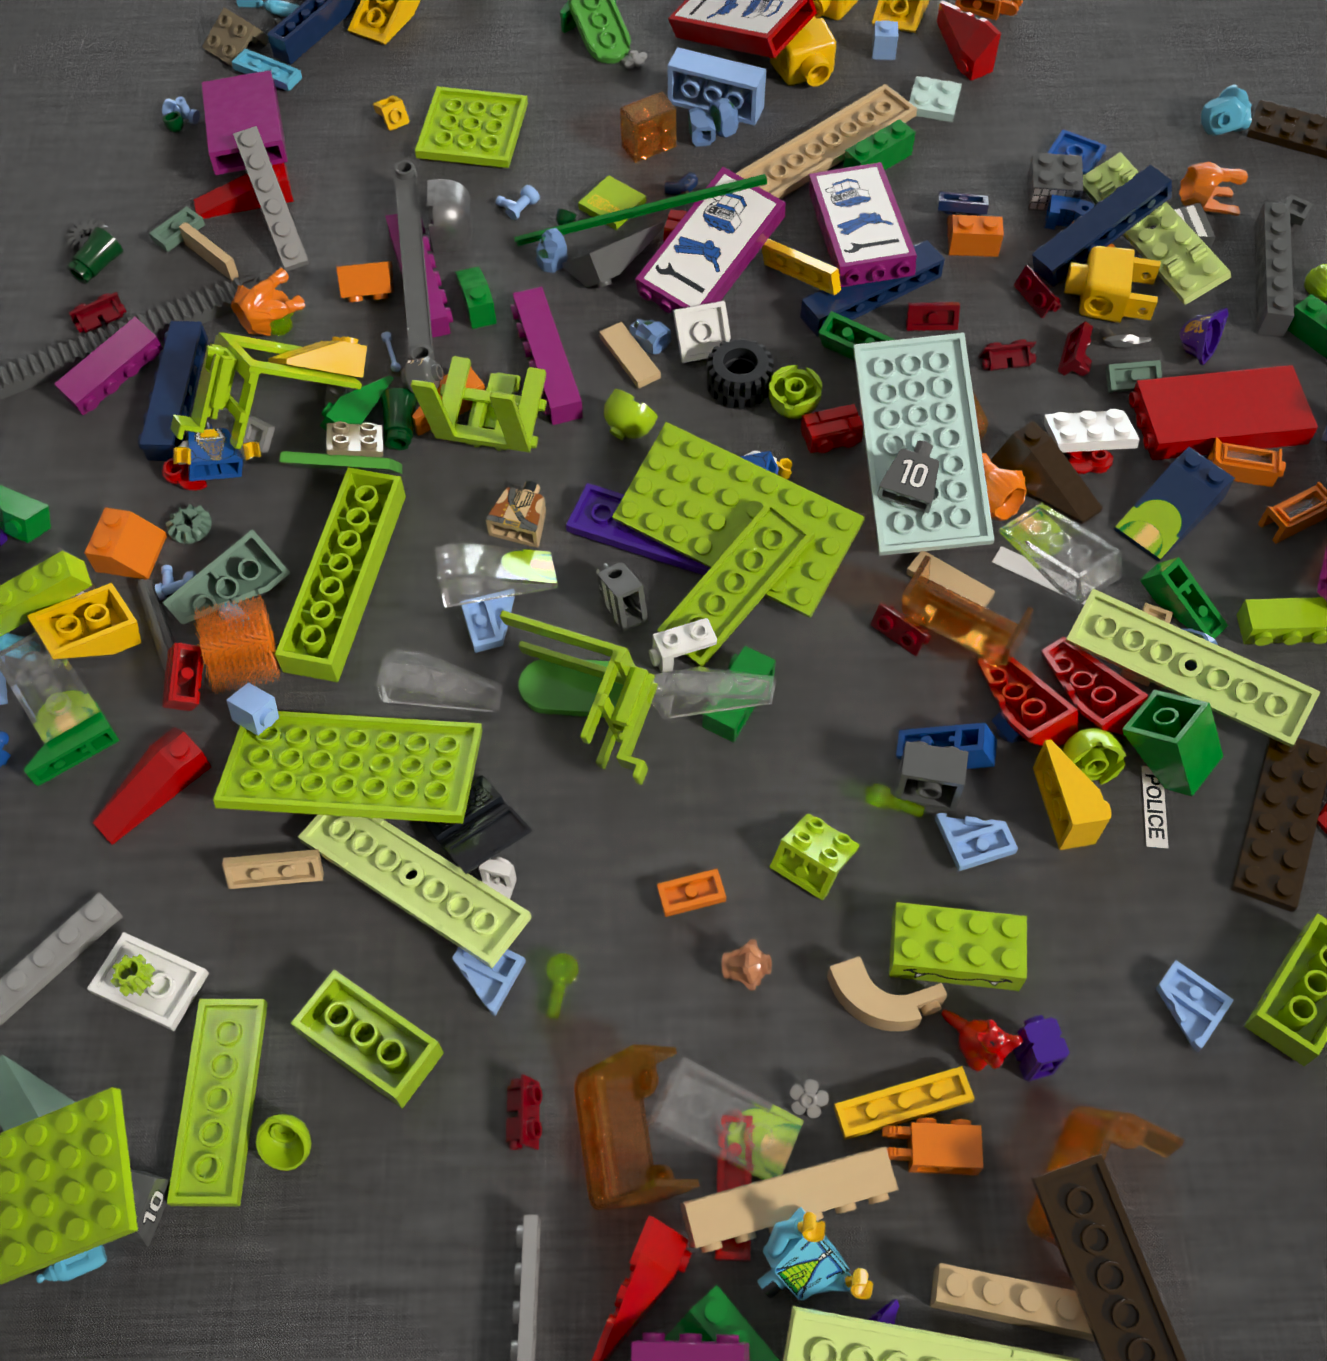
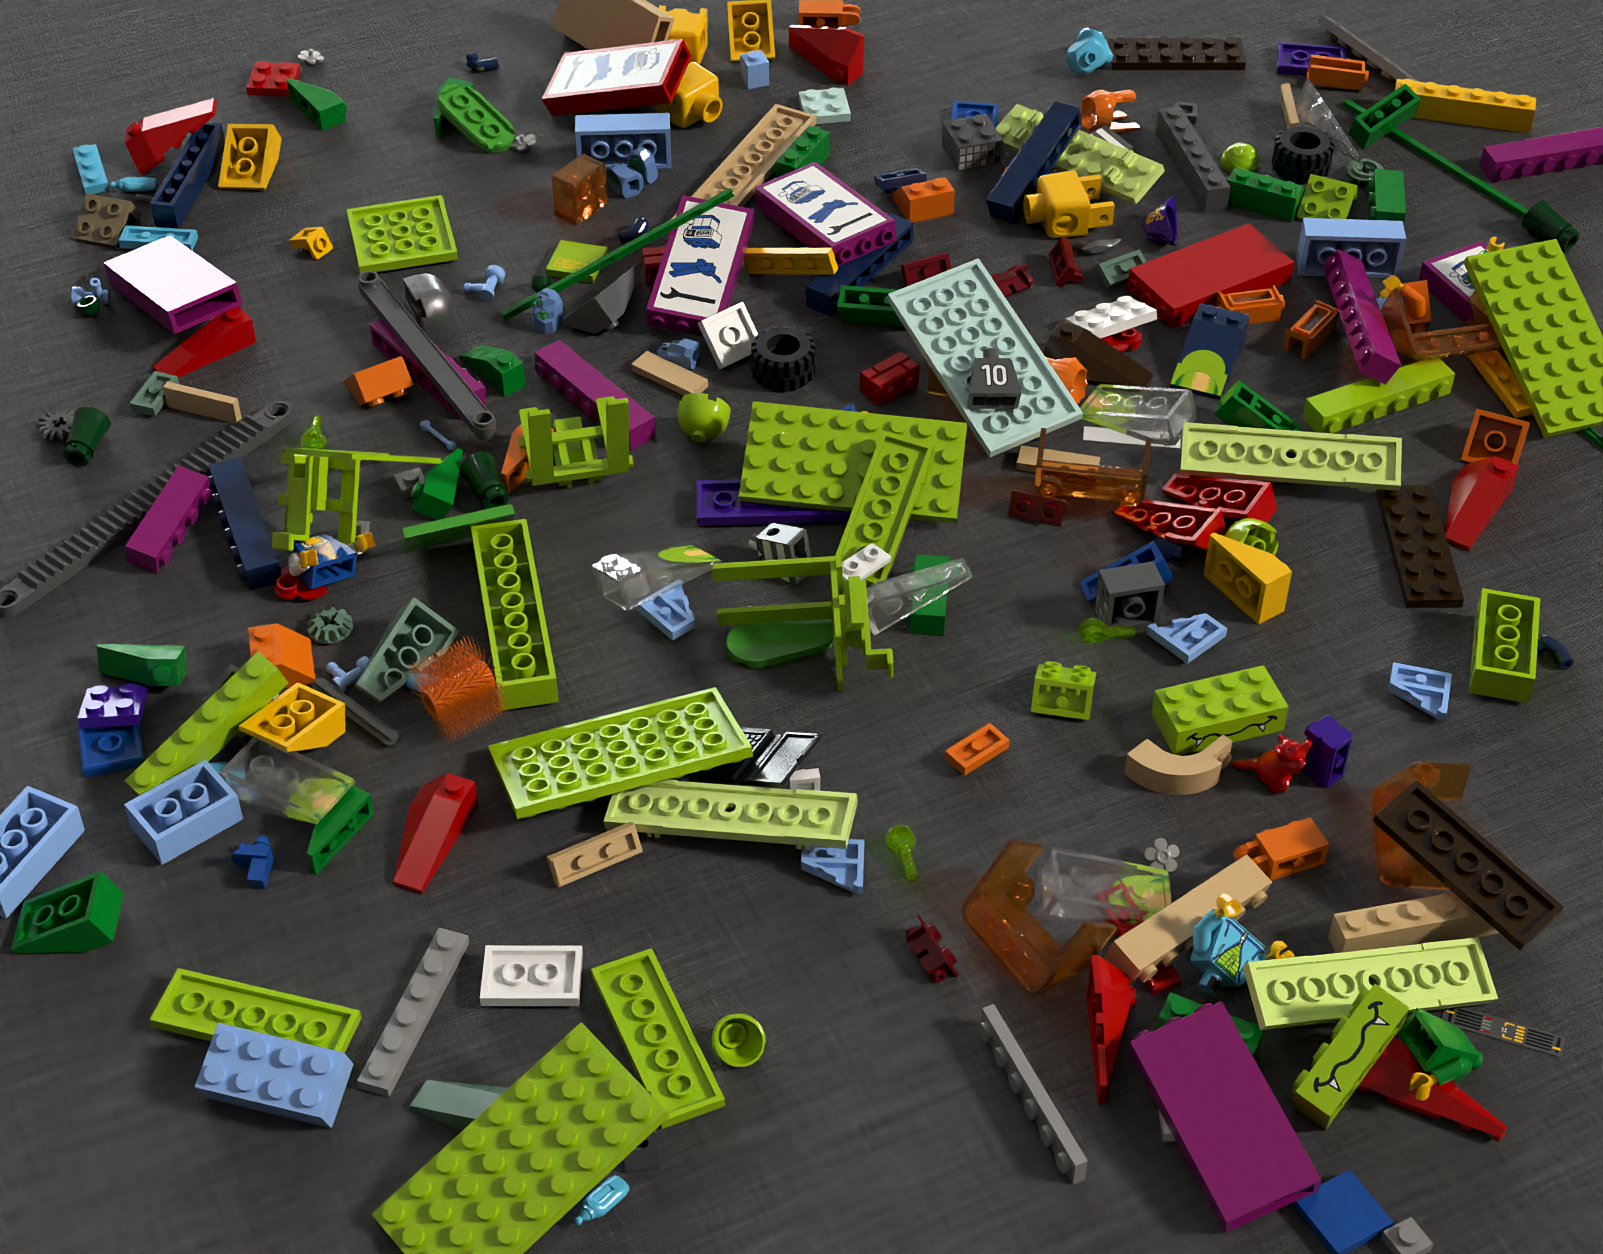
camera: 25 degrees left, 15 degrees down
(86, 315) = (110, 490): dark red hinge -> none
(124, 975) = (523, 965): lime gear -> none
(183, 677) = (415, 735): red brick -> none
(253, 708) = (502, 736): light blue brick -> none
(264, 304) = (292, 427): orange piece -> none
(271, 198) = (248, 337): light grey plate -> none
(336, 356) = (407, 440): yellow slope -> none
(354, 439) = (452, 503): dark tan bracket -> none
(368, 1038) = (765, 940): lime brick -> none
(423, 370) = (495, 435): dark grey head -> none
(429, 681) = (643, 676): clear wedge -> none
(518, 515) = (649, 524): torso -> none
(747, 965) = (1056, 780): nougat rock -> none
(795, 391) = (843, 357): lime cylinder -> none
(903, 1102) = (1220, 843): yellow plate -> none
(1036, 292) = (1004, 229): dark red hinge -> none
(1065, 210) = (993, 162): blue leg -> none
(1154, 810) = (1316, 570): white sticker -> none
(1176, 740) = (1309, 509): green slope -> none

